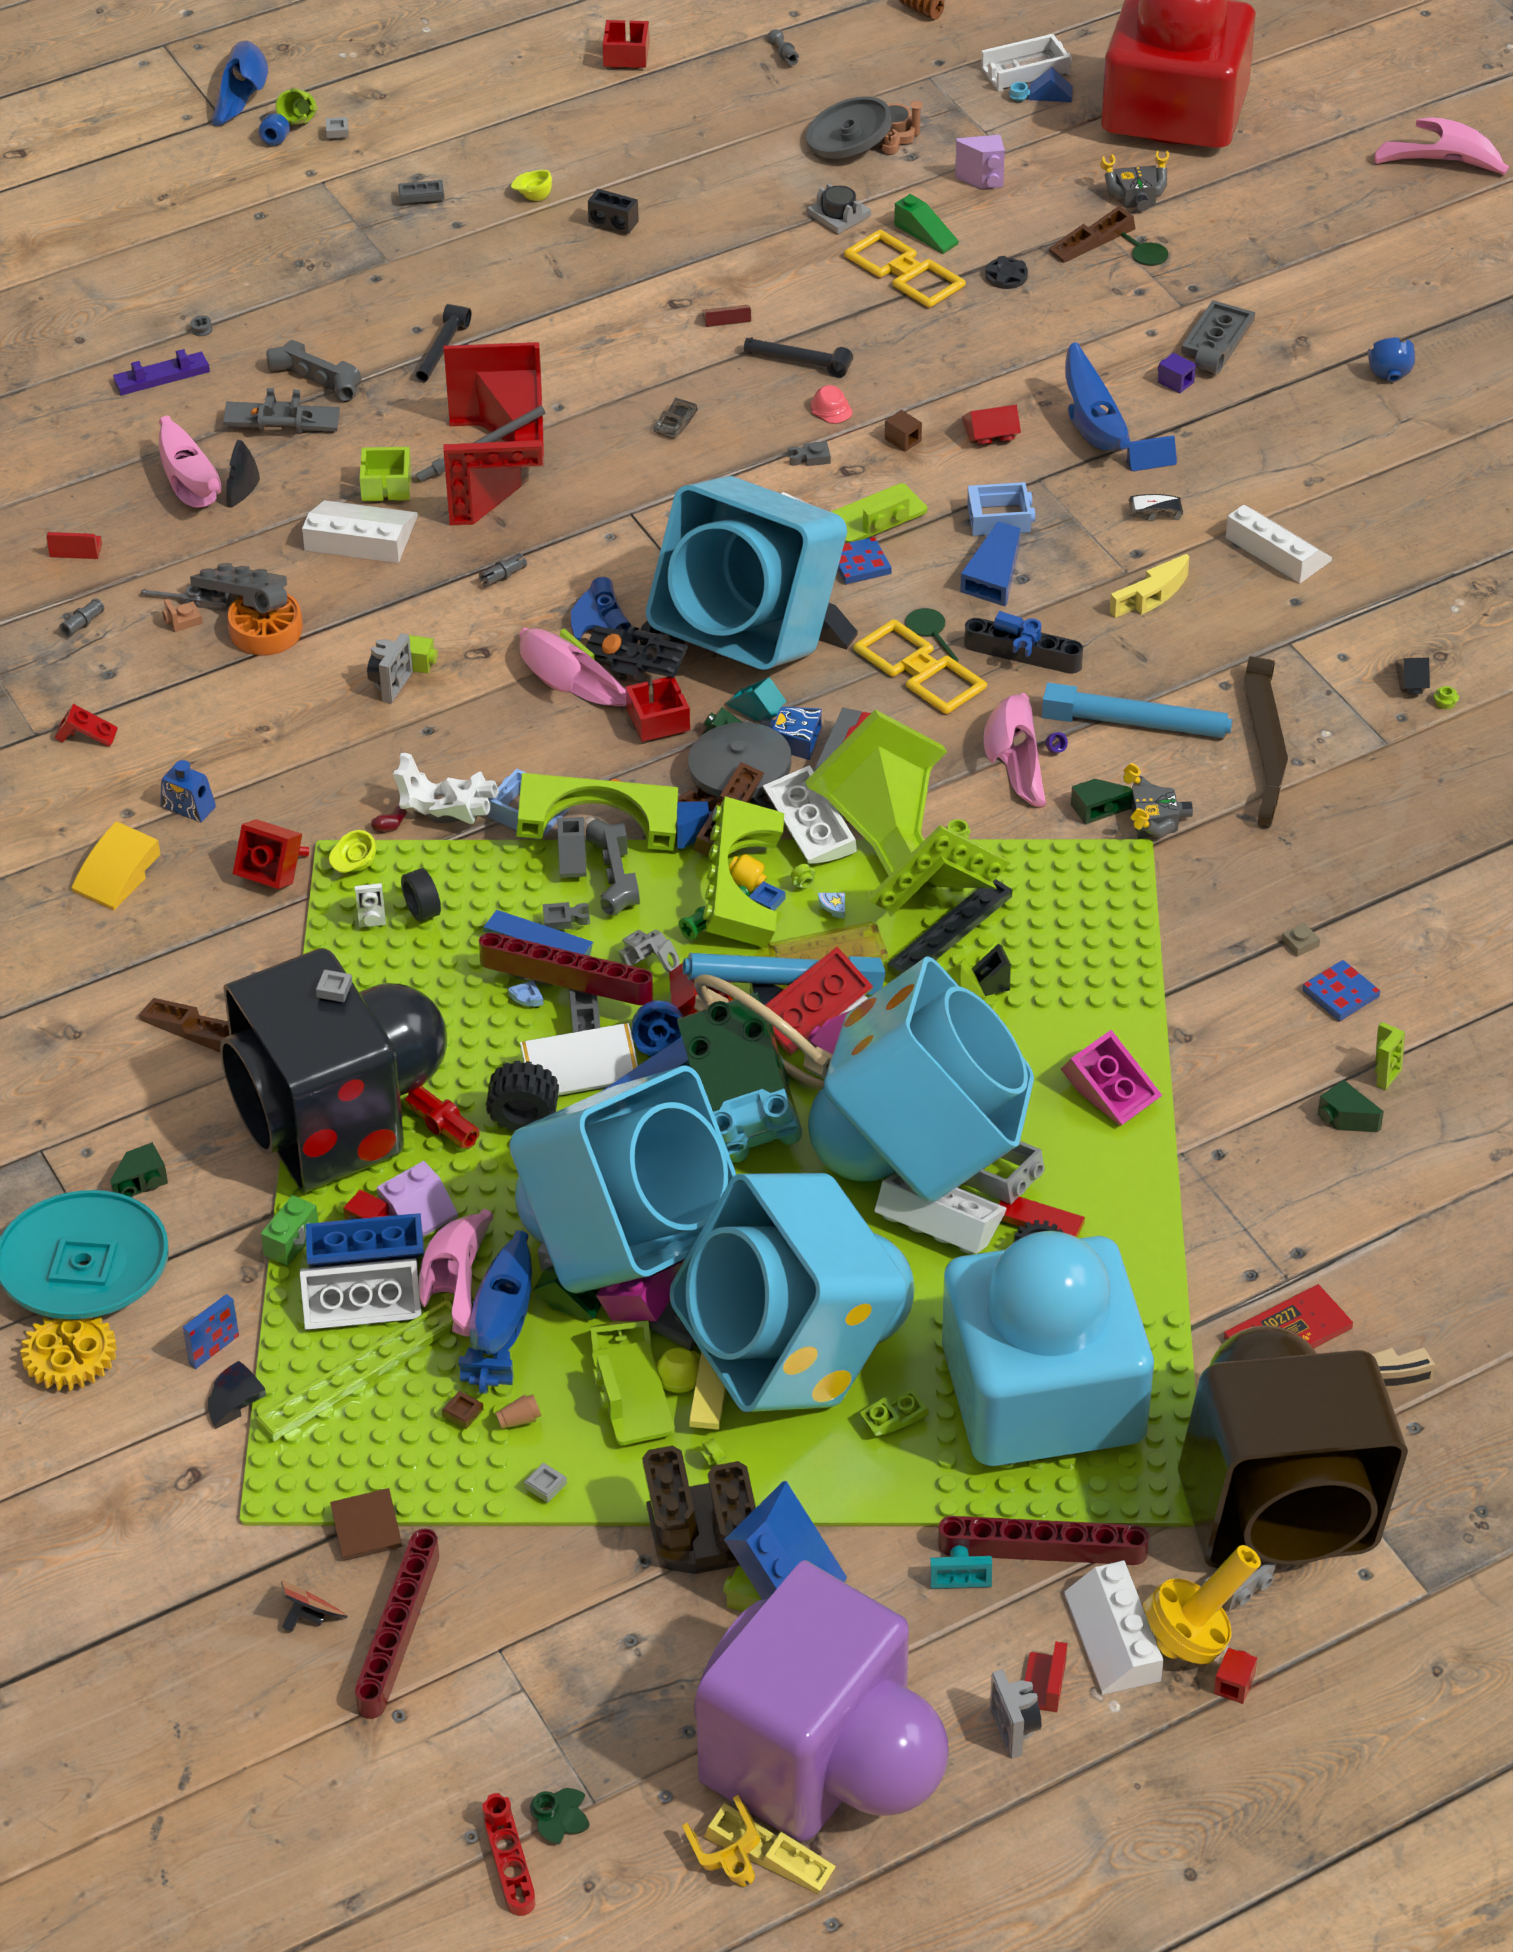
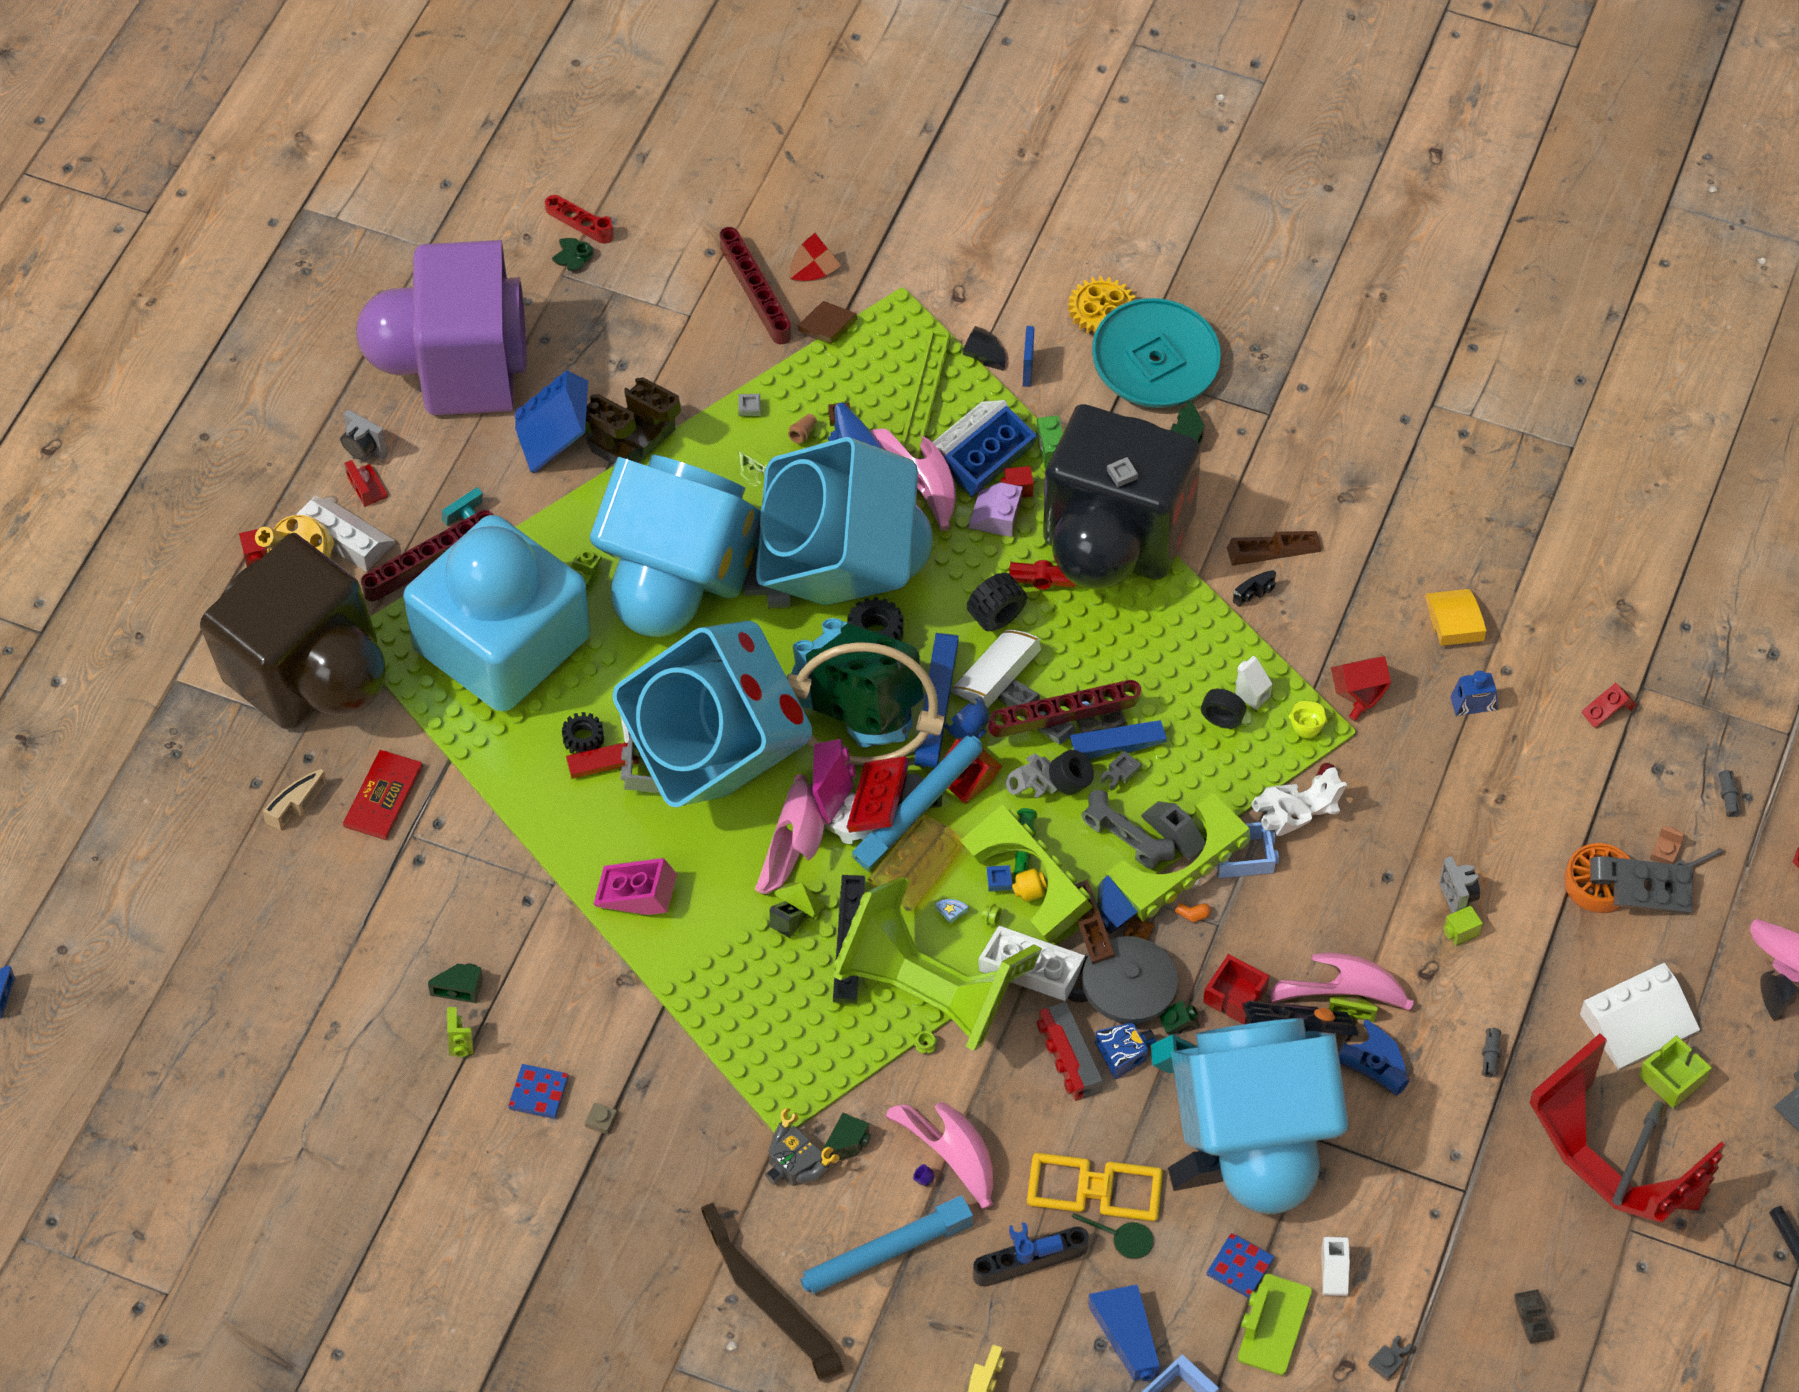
camera: 140 degrees right, 10 degrees up
(614, 927) = (1071, 772): none -> black tyre

